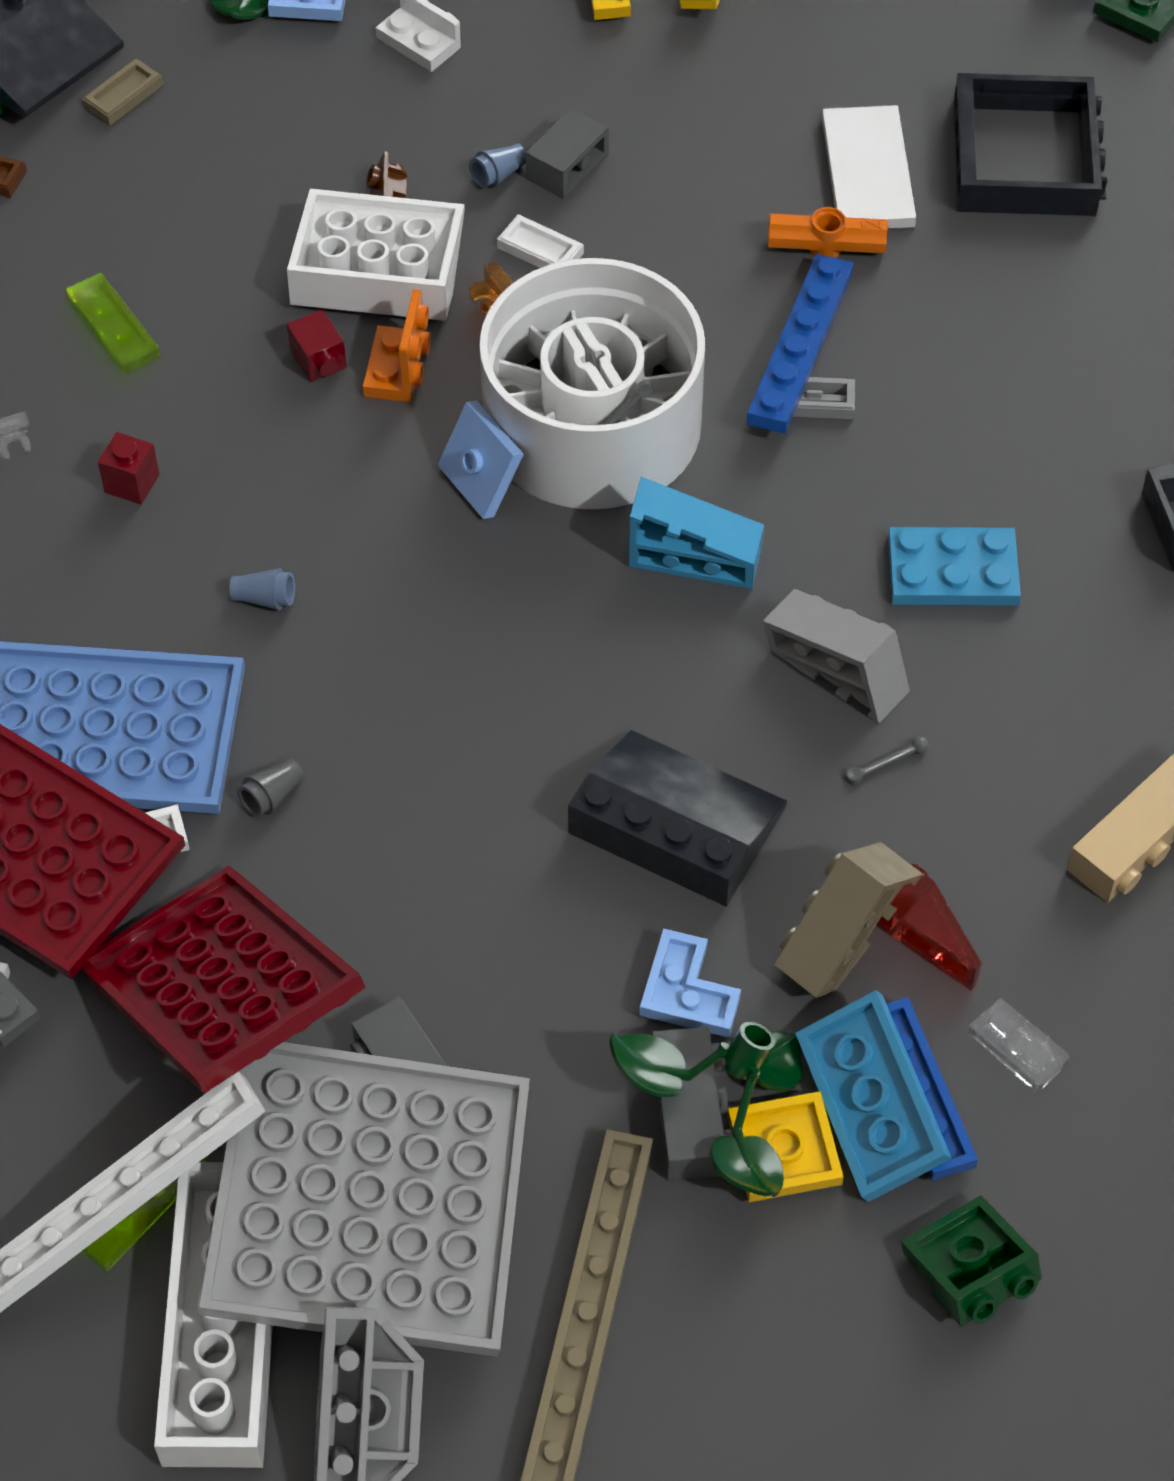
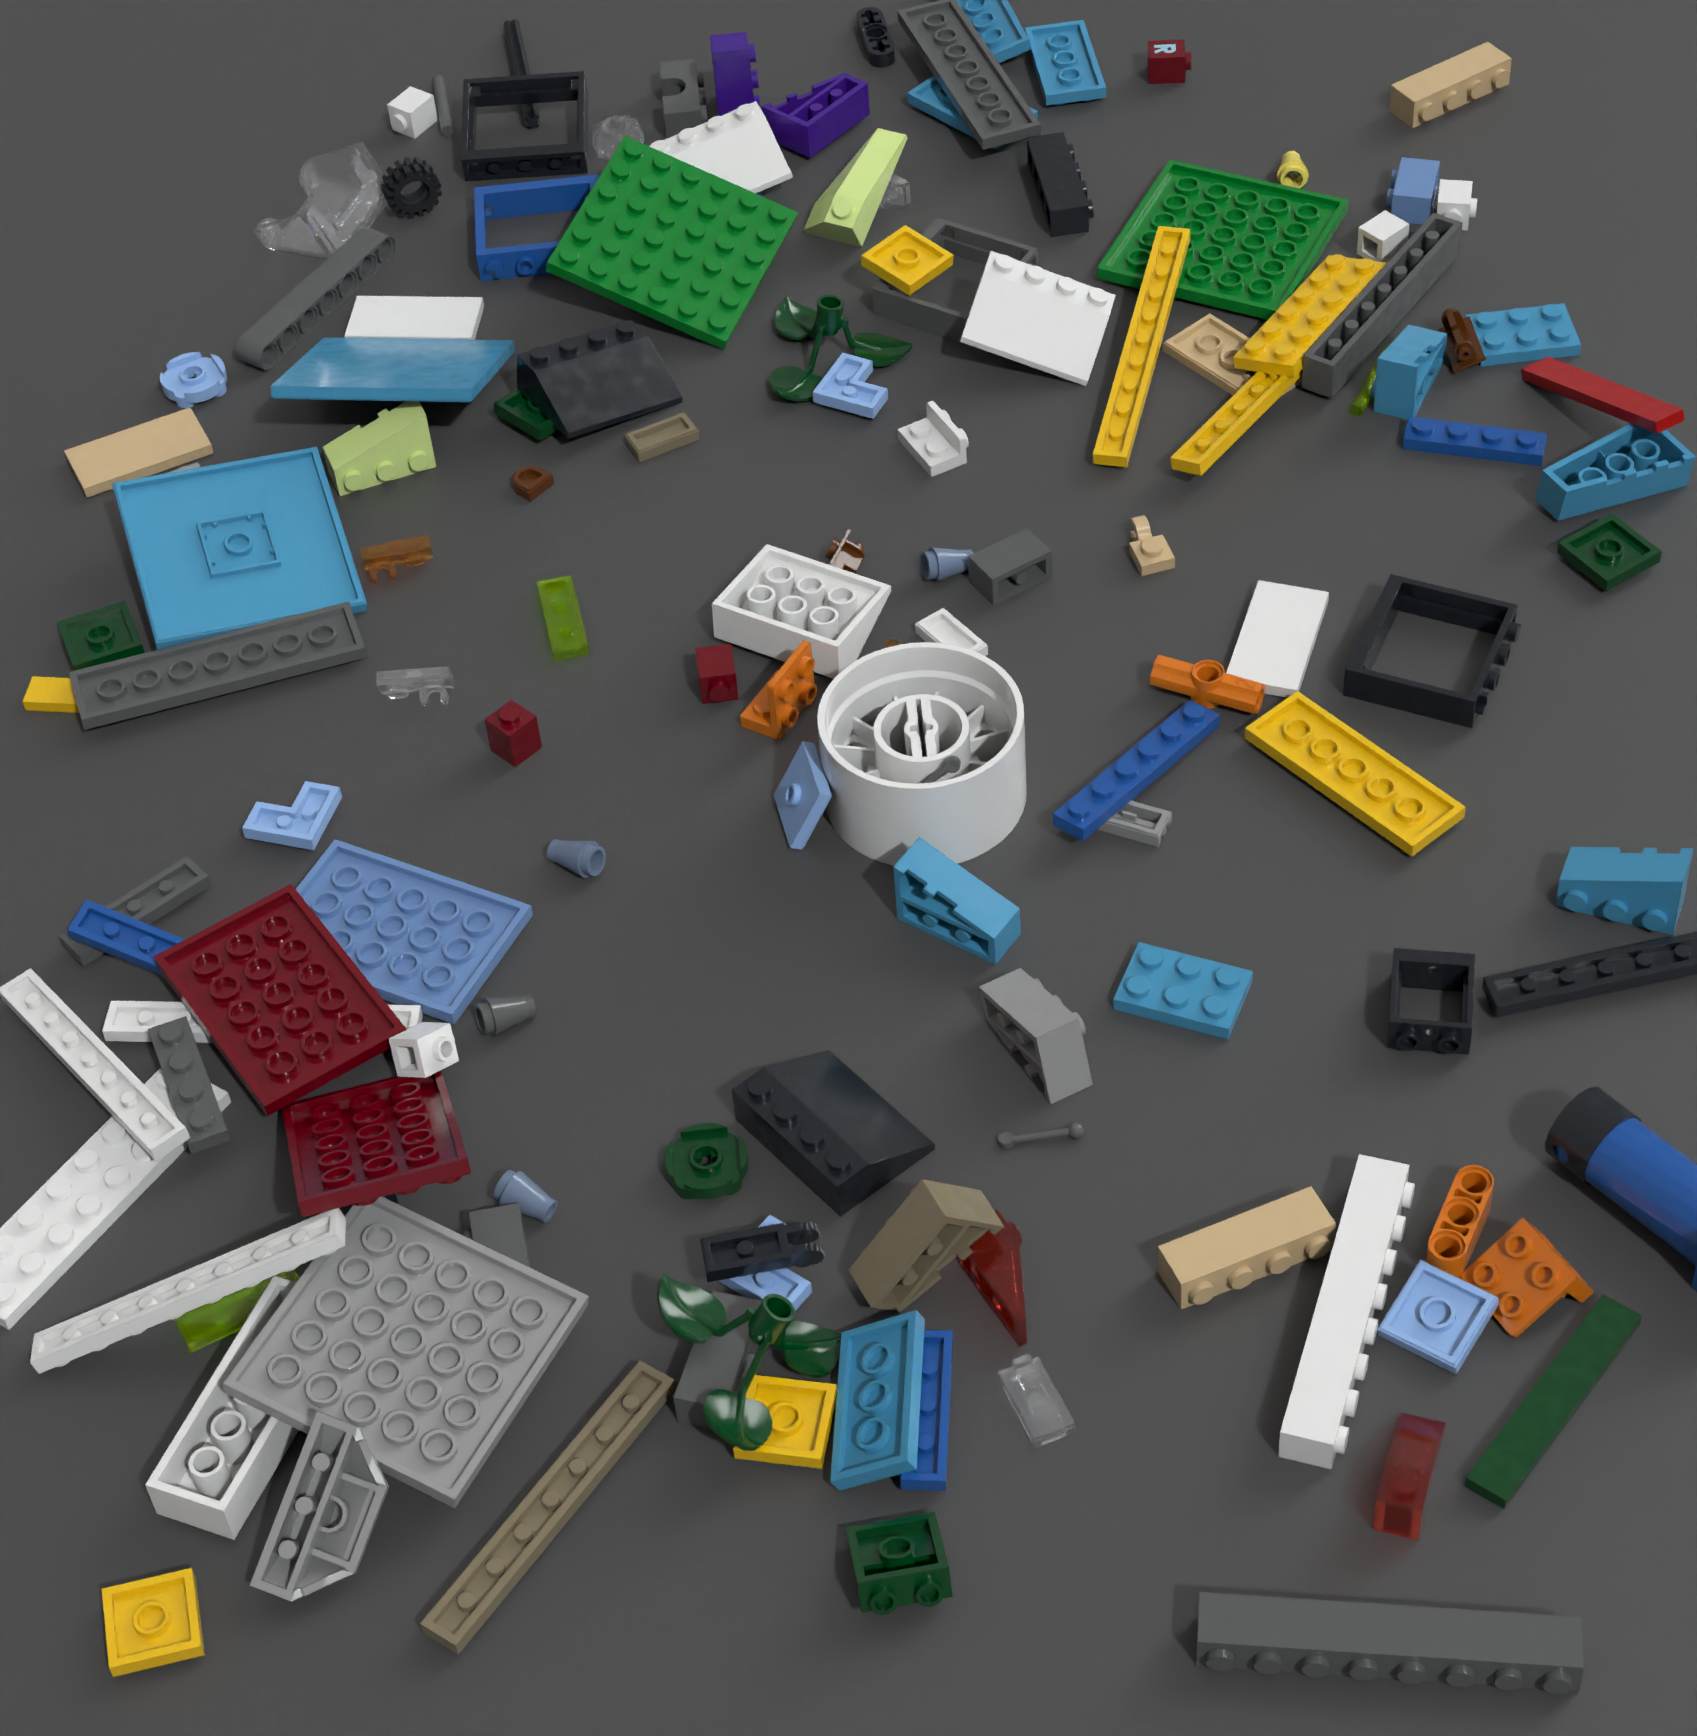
camera: 25 degrees right, 10 degrees down
(210, 854) = (423, 1049): none -> white brick
(387, 982) = (532, 1200): none -> sand blue cone
(570, 912) = (708, 1181): none -> dark green plate
(677, 973) = (761, 1250): none -> black hinge
(697, 104) = (1149, 552): none -> tan plate
(1012, 291) = (1355, 773): none -> yellow plate

